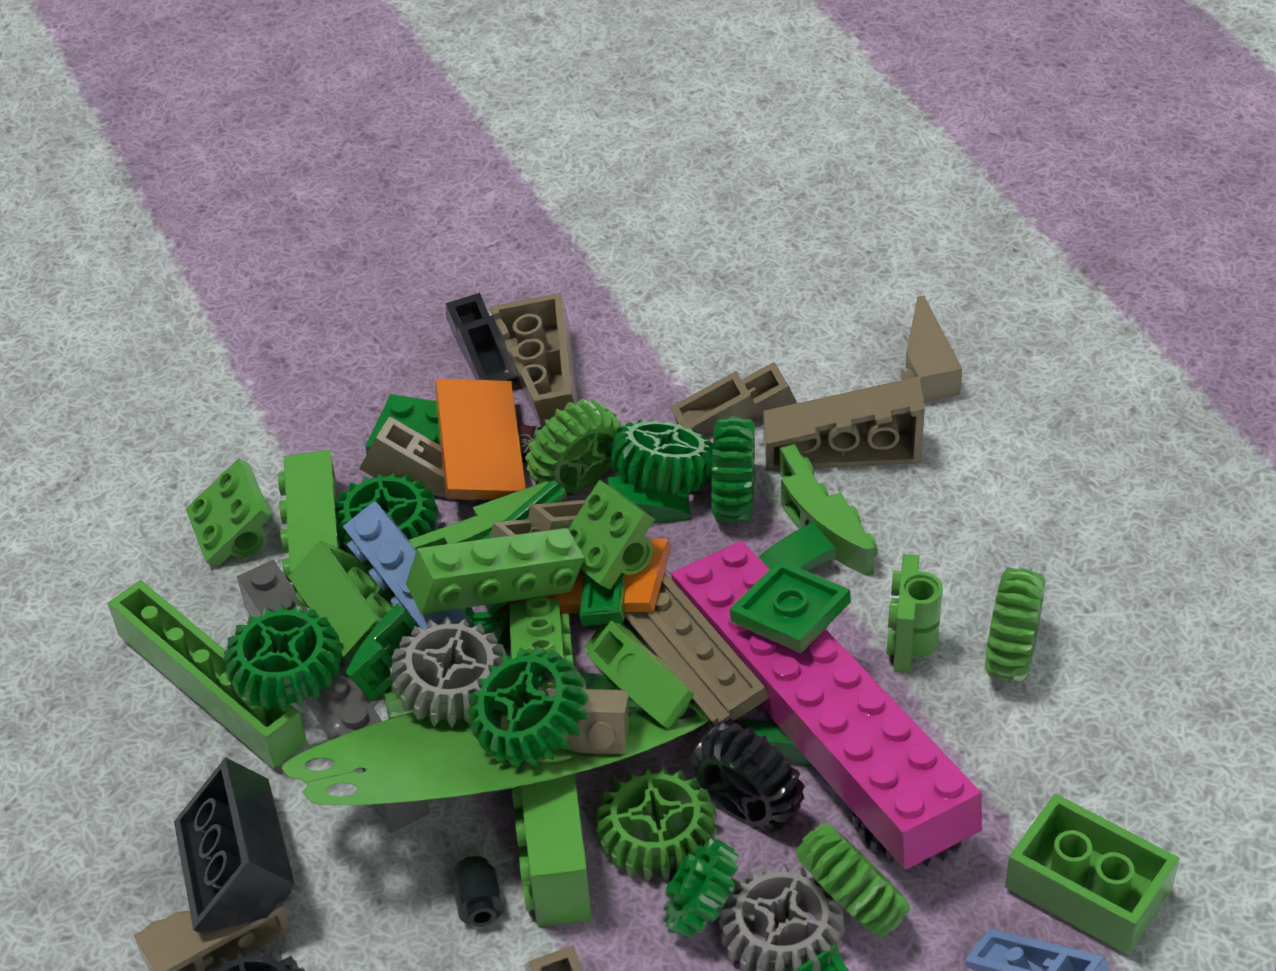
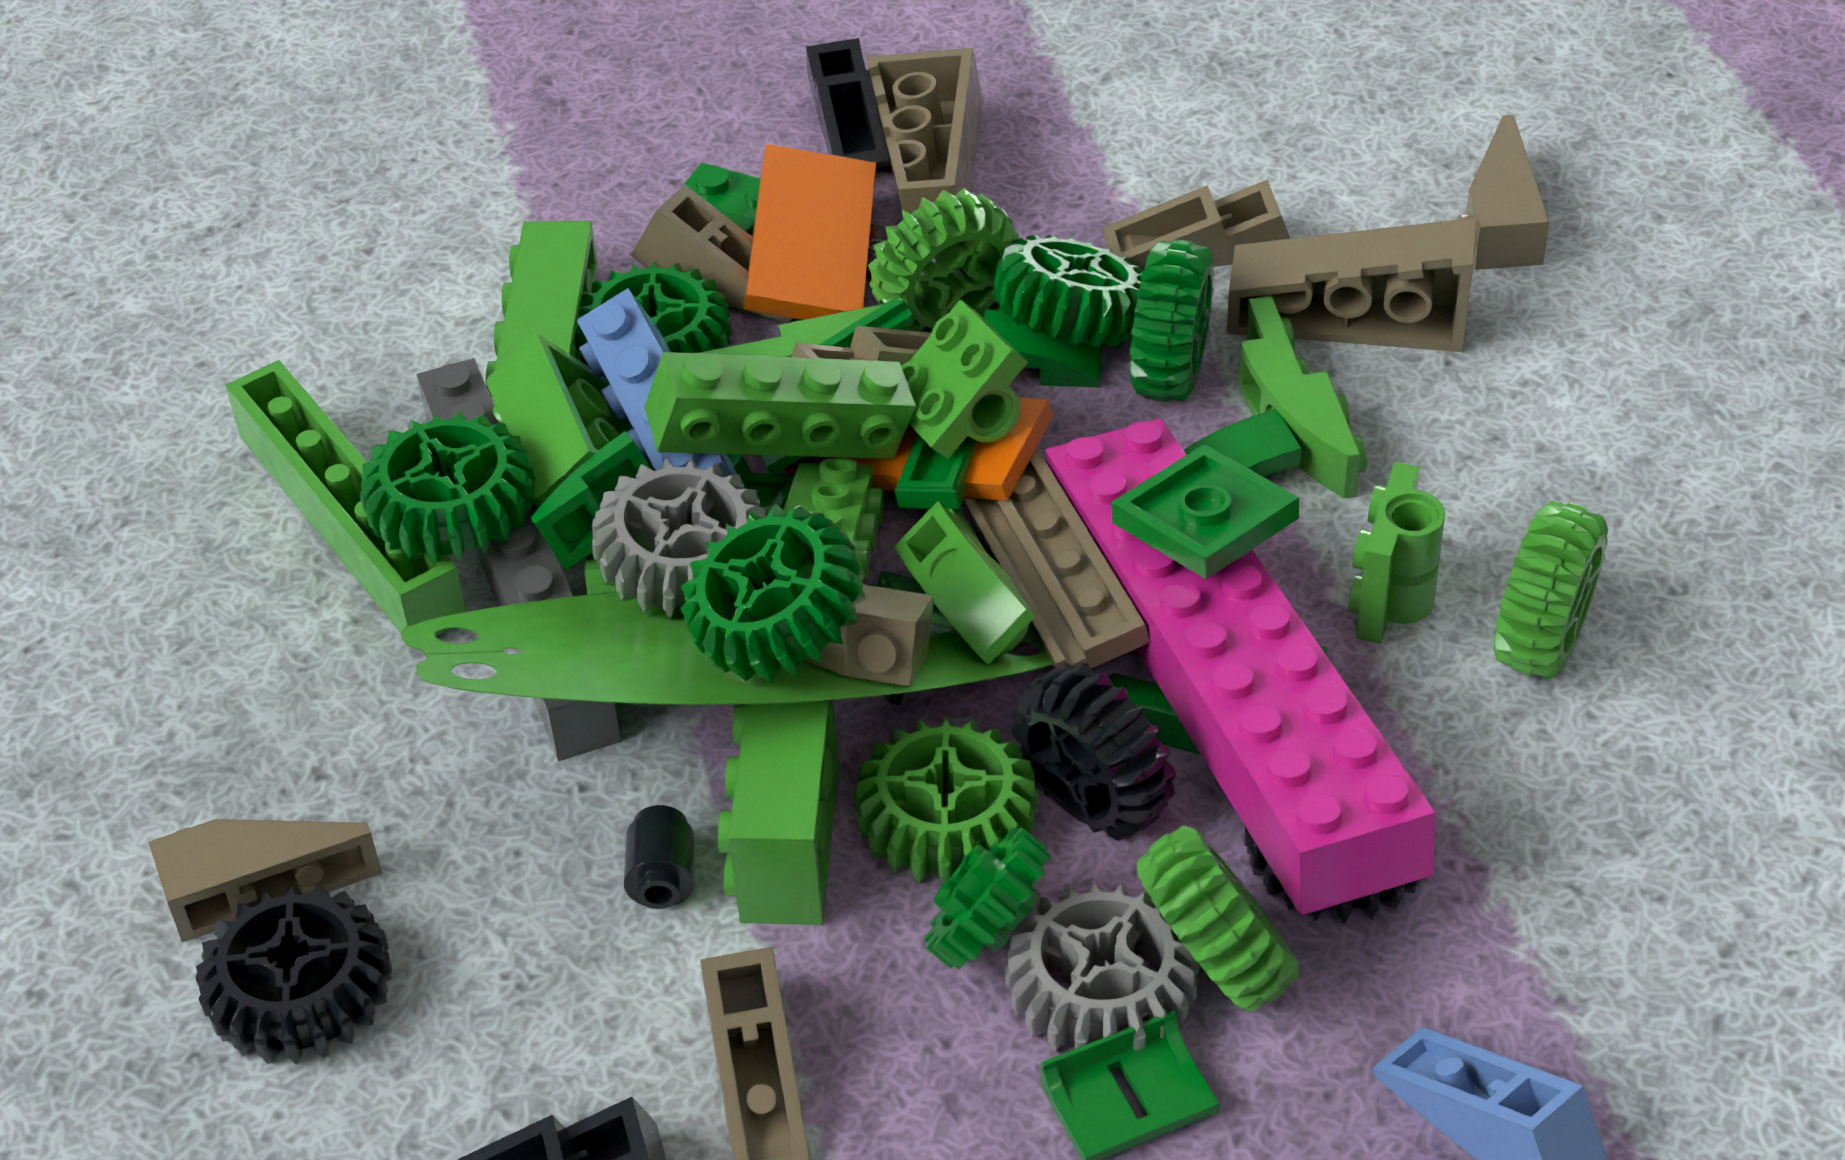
camera: 10 degrees right, 0 degrees up
(230, 515) = (432, 296): bright green plate -> none
(232, 850) = (318, 745): black slope -> none
(1091, 873) = (1596, 966): bright green brick -> none

